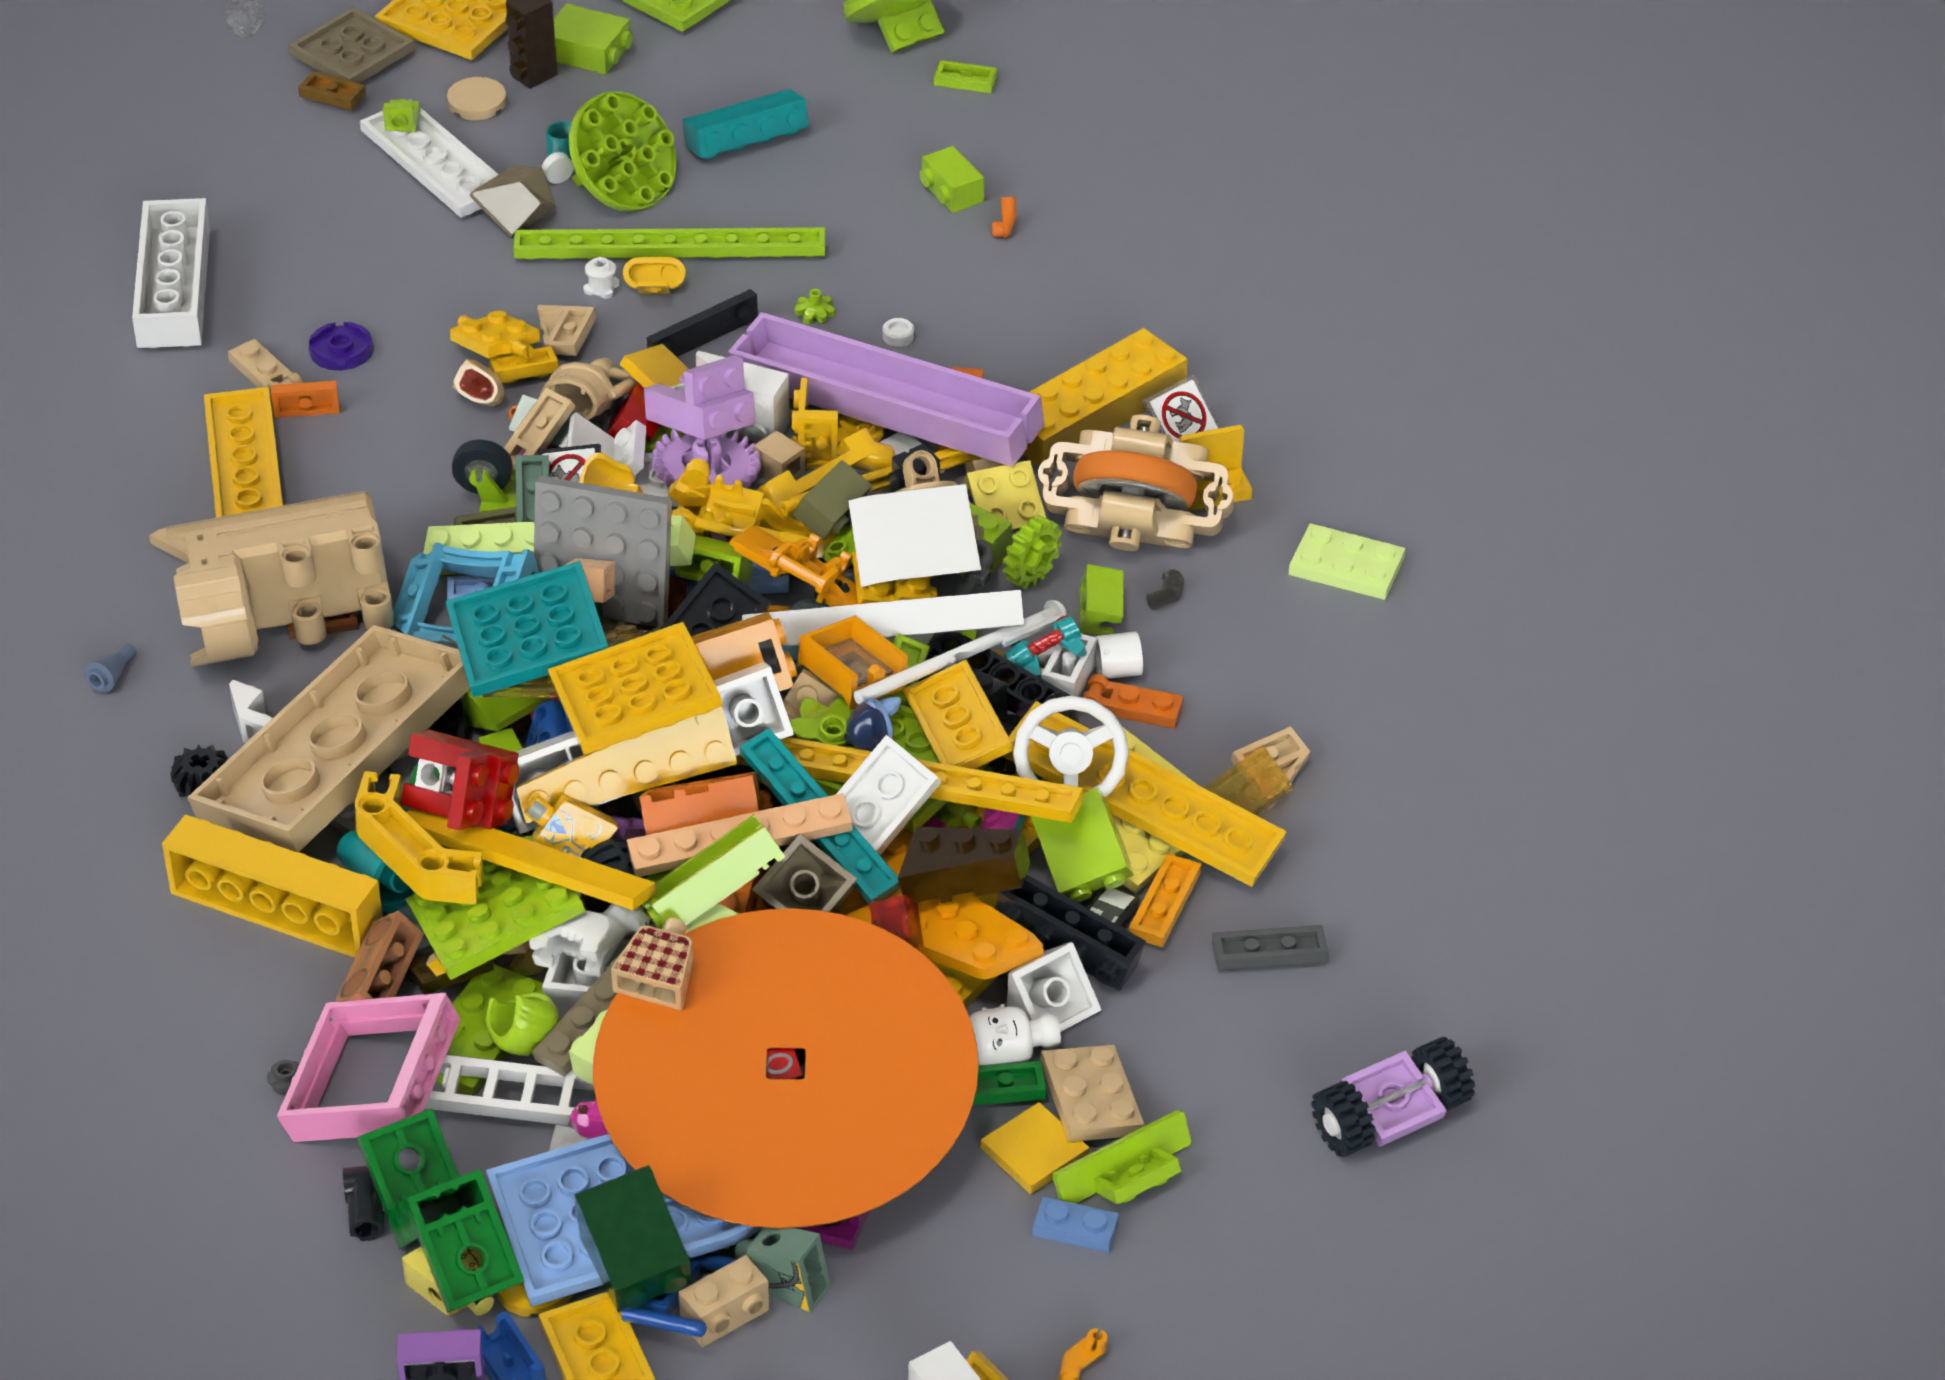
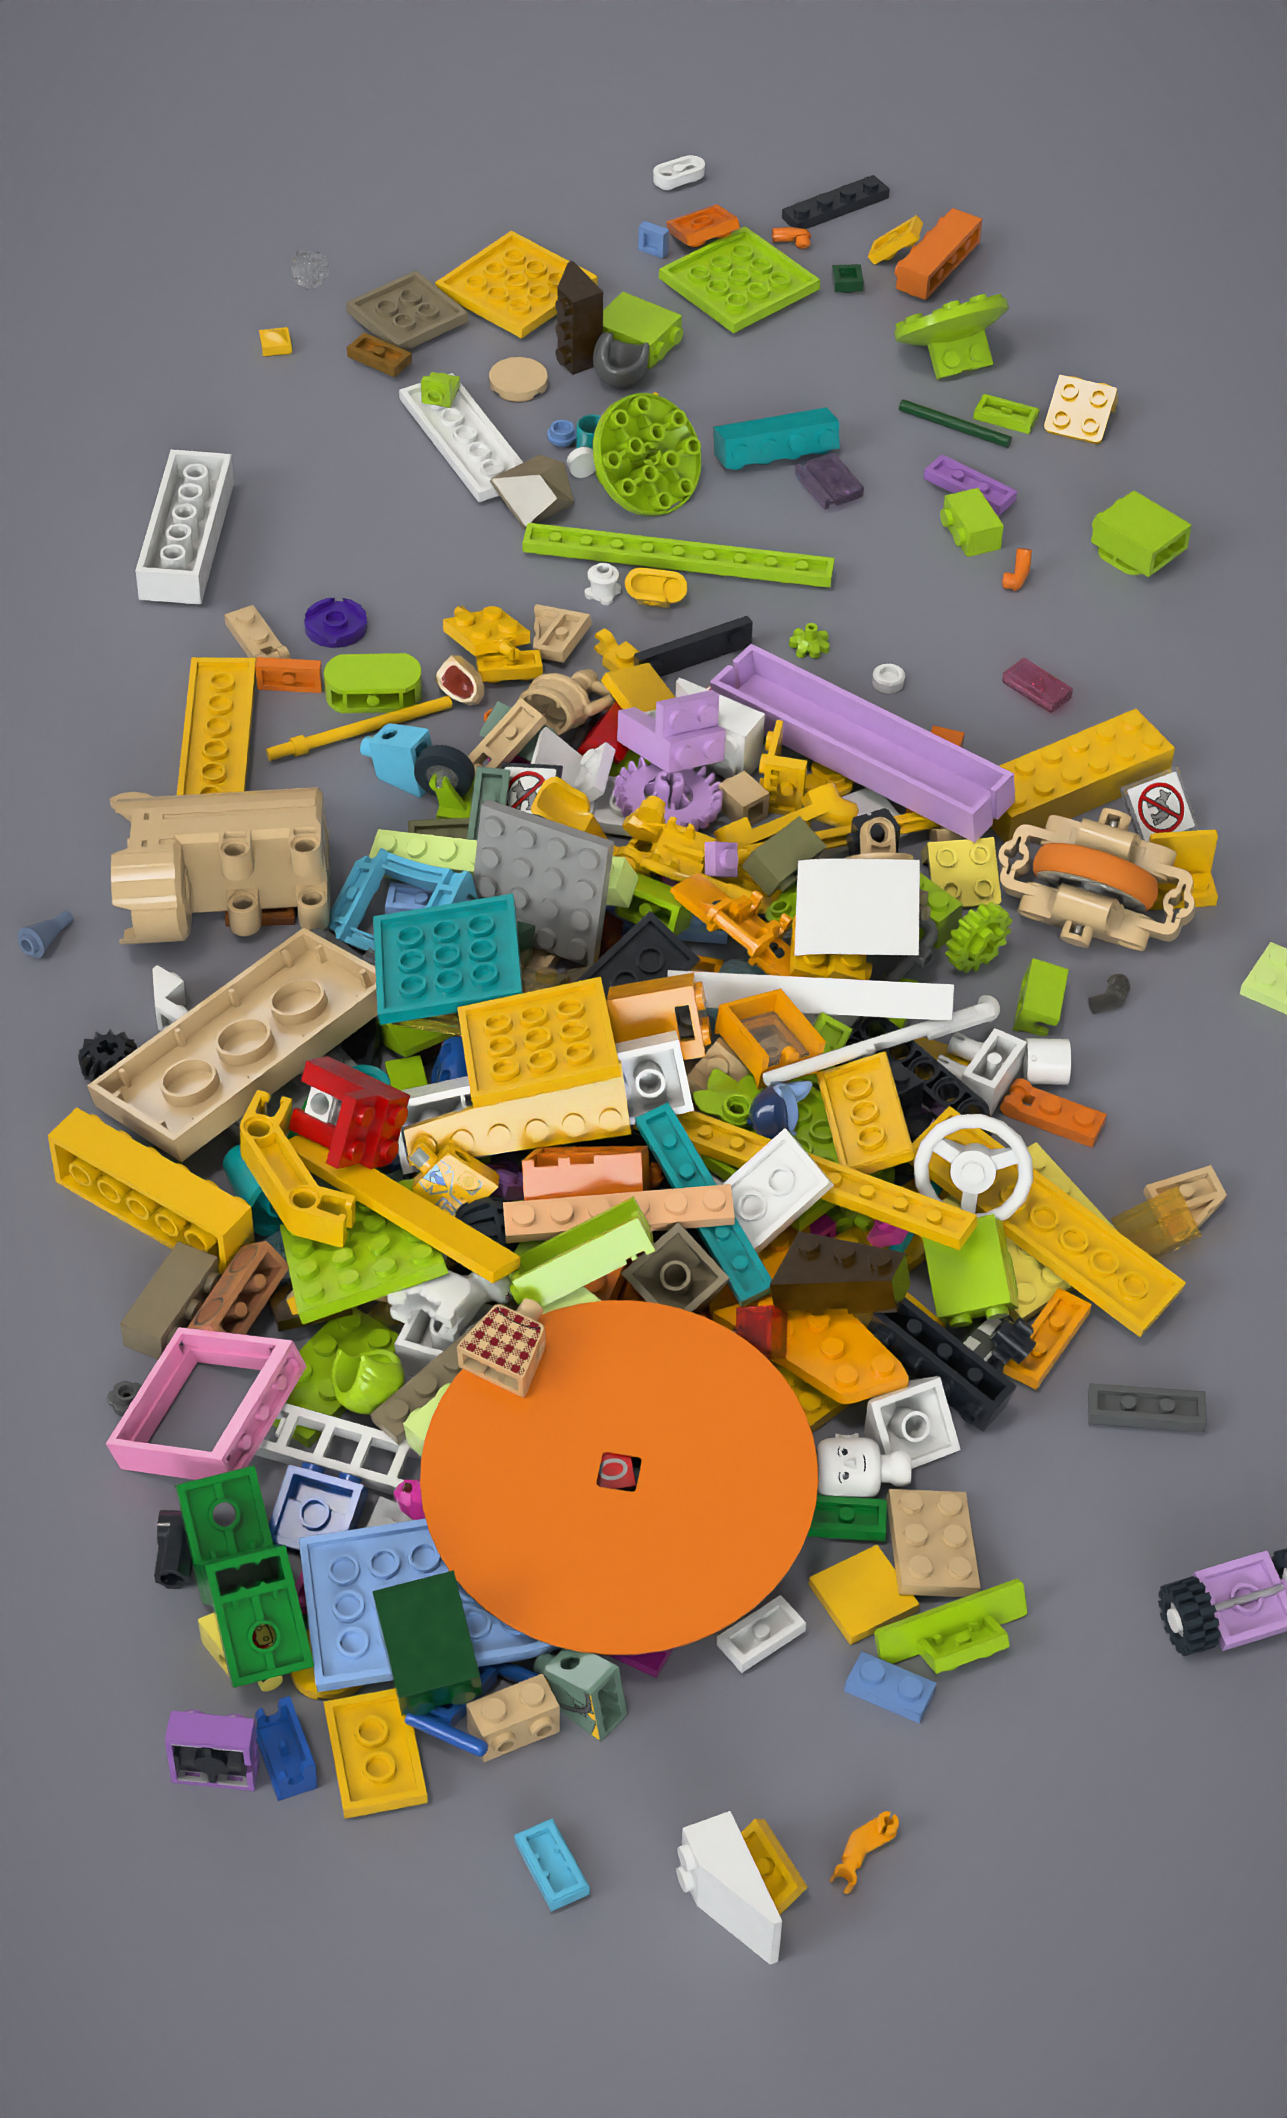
camera: 10 degrees right, 5 degrees up
(223, 90) = (275, 341): none -> yellow tile
(310, 981) = (170, 1299): none -> dark tan brick
(331, 462) = (301, 745): none -> yellow bar
(391, 396) = (372, 682): none -> lime brick
(429, 459) = (395, 755): none -> medium azure torso
(494, 1138) = (315, 1504): none -> plate
(531, 143) = (562, 433): none -> medium blue plate
(576, 71) = (619, 362): none -> dark grey piece
(600, 578) = (531, 910): light nougat brick -> none
(624, 342) = (614, 655): none -> yellow plate
(772, 510) = (721, 859): none -> lavender plate
(805, 157) = (829, 480): none -> clear purple plate
(917, 91) = (955, 423): none -> dark green bar
(929, 139) = (958, 477): none -> medium lavender plate
(944, 1195) = (761, 1633): none -> white plate
(1038, 63) = (1080, 409): none -> bracket
(1043, 320) = (1037, 685): none -> clear pink plate
(1065, 634) = (951, 1051): teal piece -> none
(1116, 171) = (1139, 535): none -> lime brick
(1133, 903) = (1012, 1340): none -> black gear

